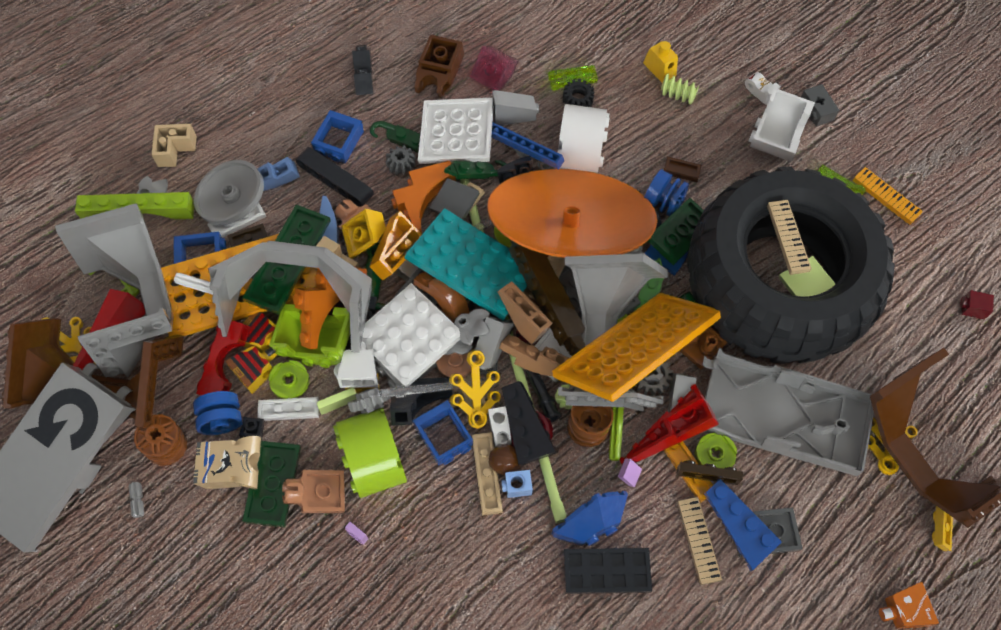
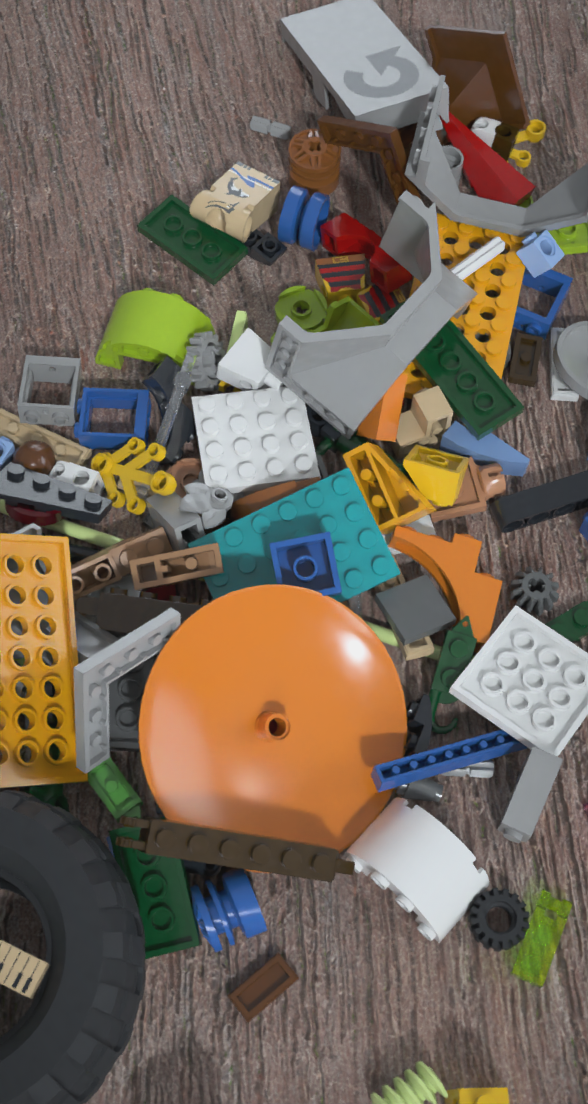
camera: 125 degrees right, 0 degrees up
(69, 338) = (496, 135): none -> leg
(171, 253) = (539, 253): none -> light blue brick
(288, 408) = (263, 300): white tile -> none
(316, 491) = (147, 262): nougat plate -> none
(356, 533) = (76, 282): lavender tile -> none
(442, 468) = (39, 369): none -> light grey window
(481, 241) = (307, 563): none -> blue brick
(644, 194) = (234, 849): none -> dark brown hinge

